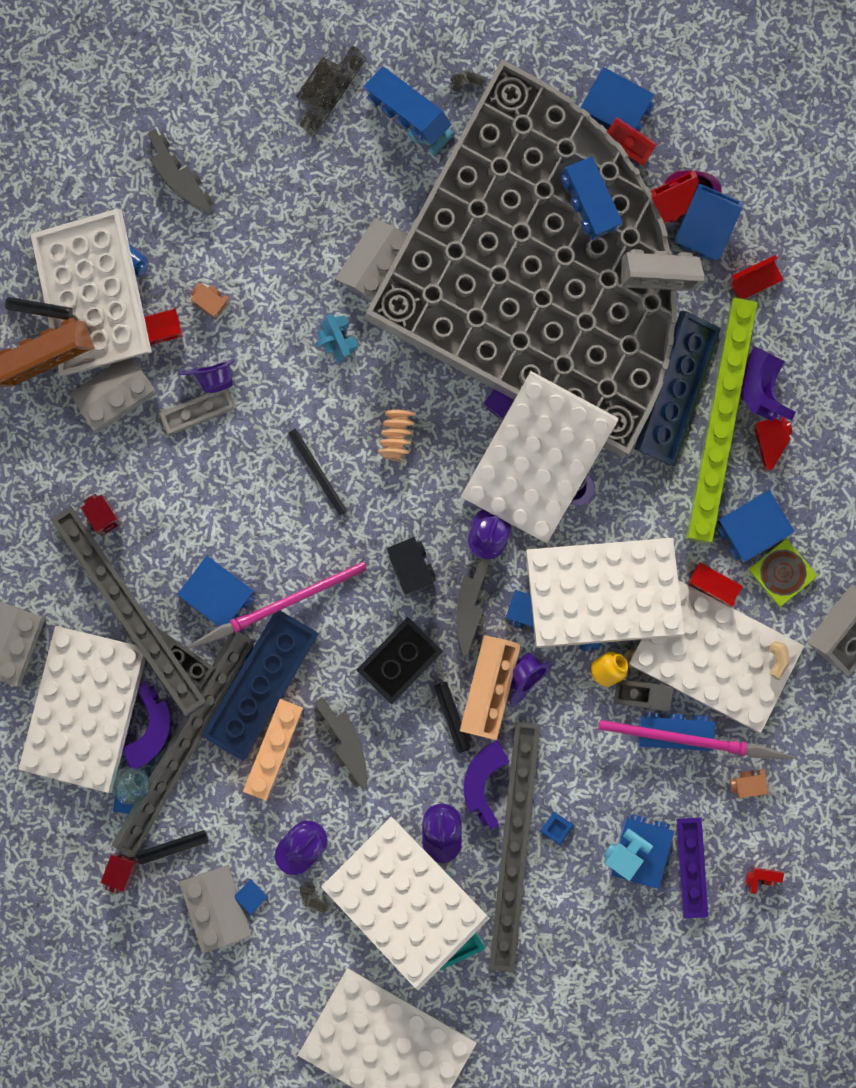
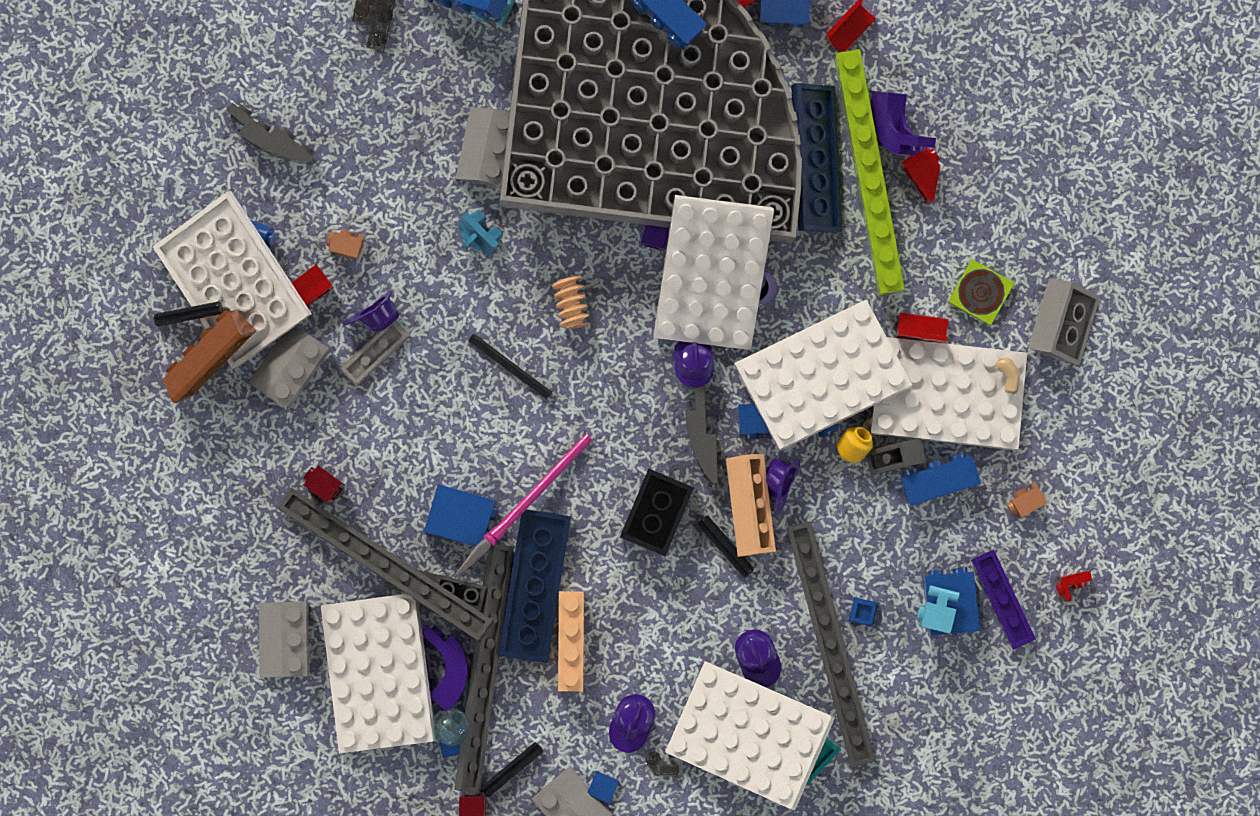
camera: 25 degrees left, 0 degrees up
(350, 751) = (643, 614): dark grey slope -> none
(410, 567) = (634, 421): black brick -> none
(477, 773) = (769, 594): dark purple arch -> none
(661, 271) = (760, 54): light grey slope -> none
(731, 747) = (995, 473): dark pink piece -> none
(754, 527) = (938, 260): blue brick -> none

